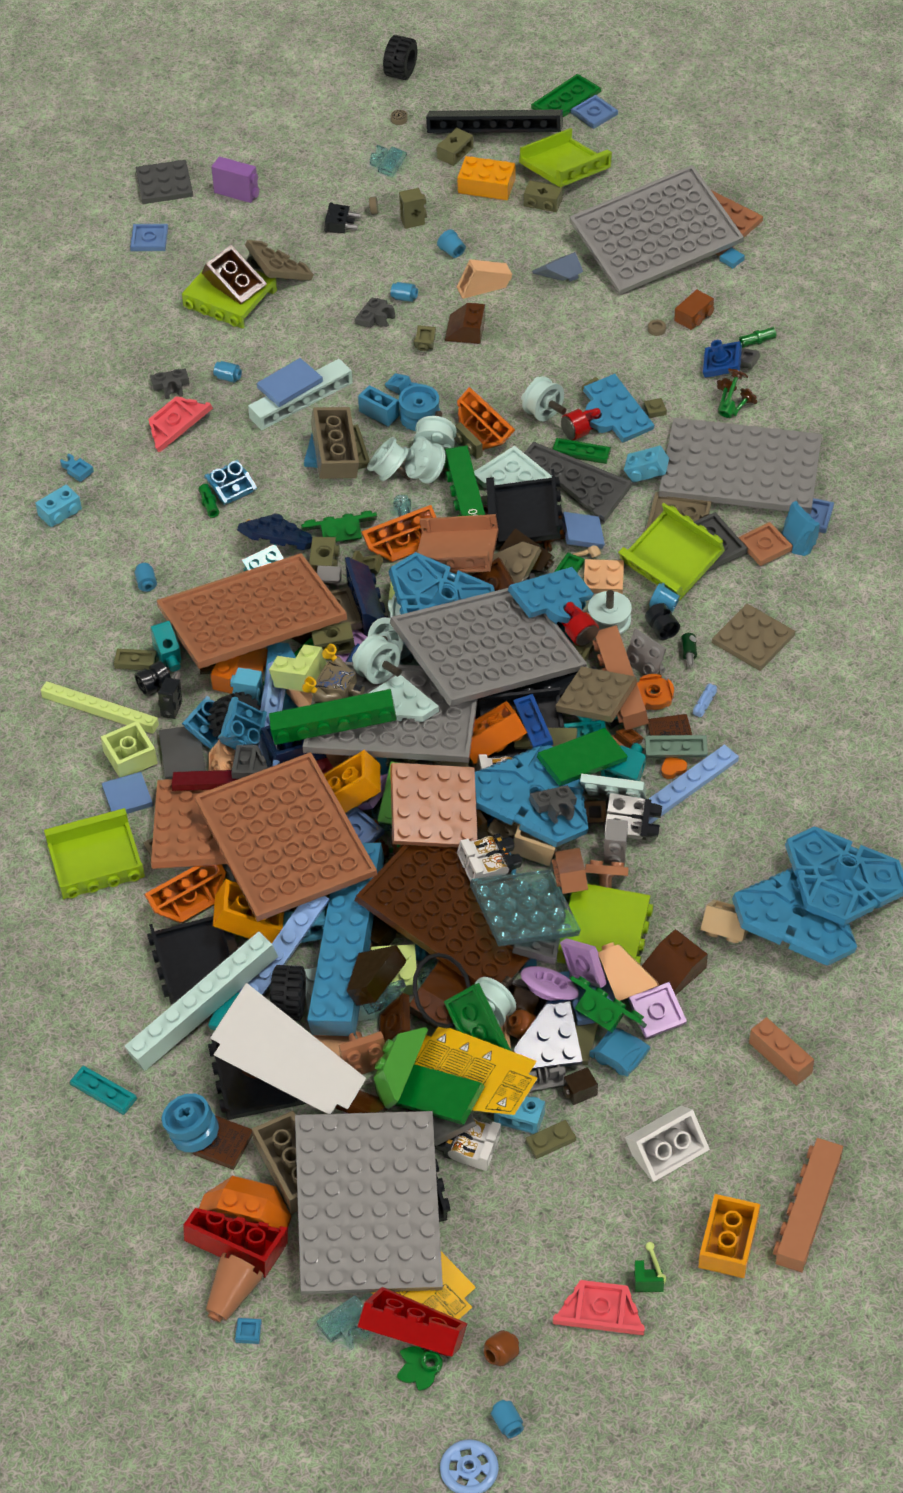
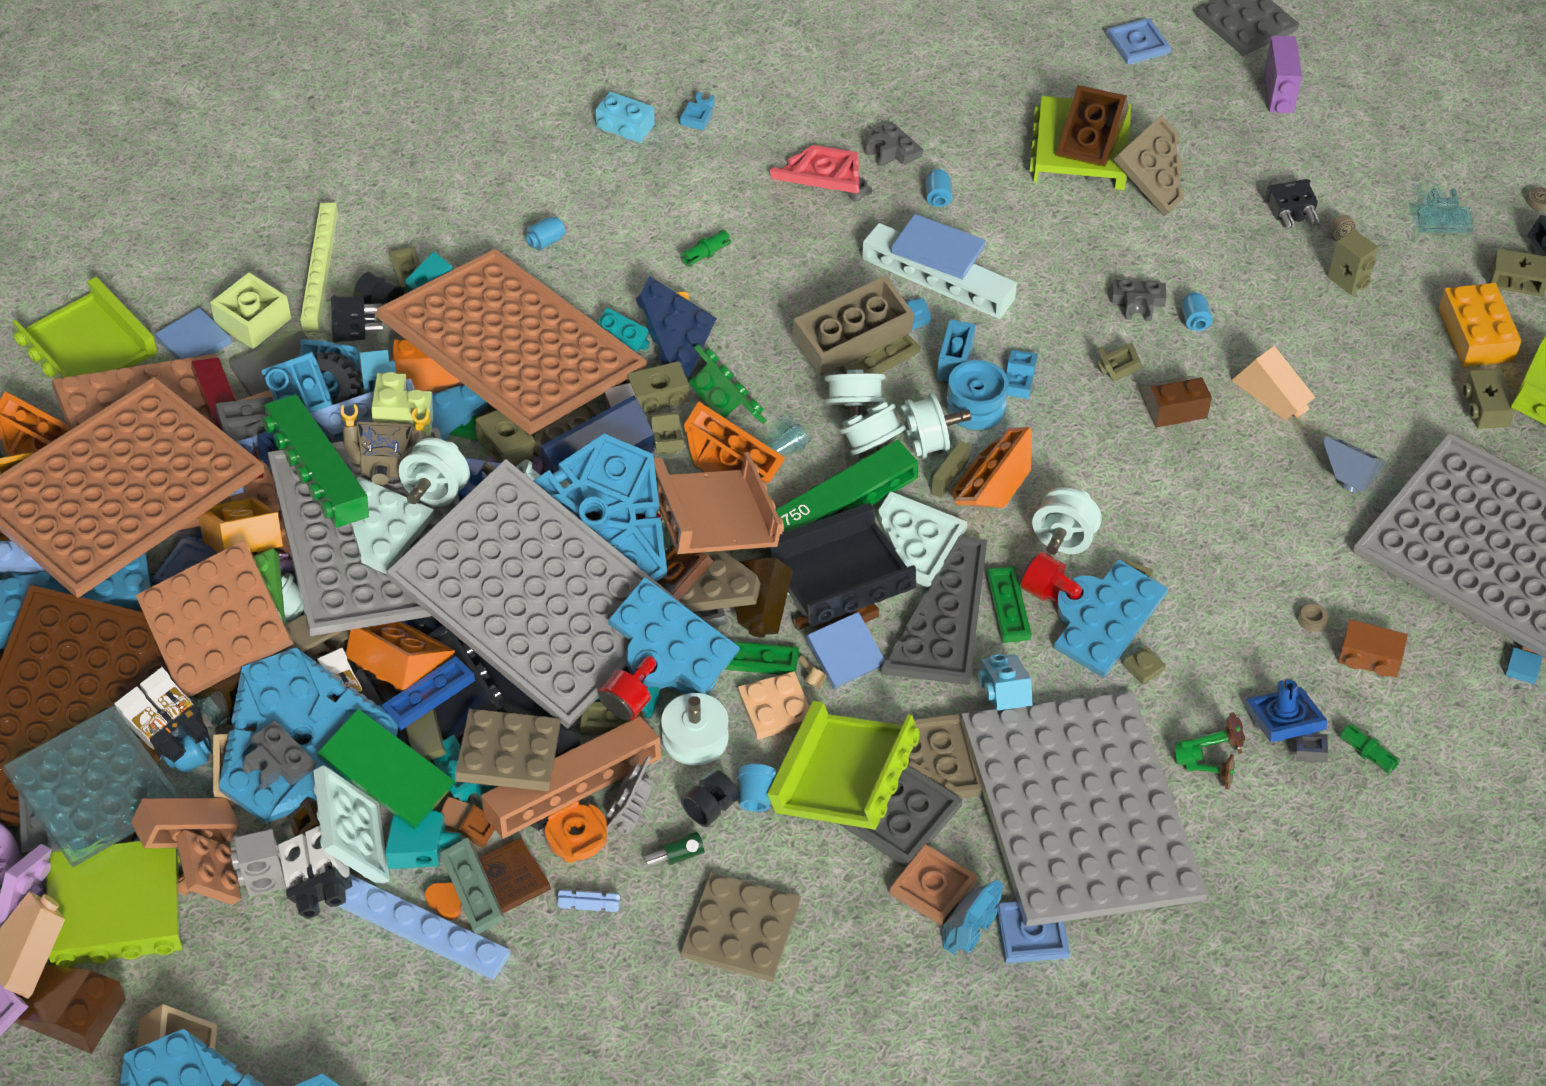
camera: 65 degrees right, 0 degrees up
(231, 482) = (743, 256): dark azure slope -> none
(451, 243) = (1321, 329): dark azure piece -> none

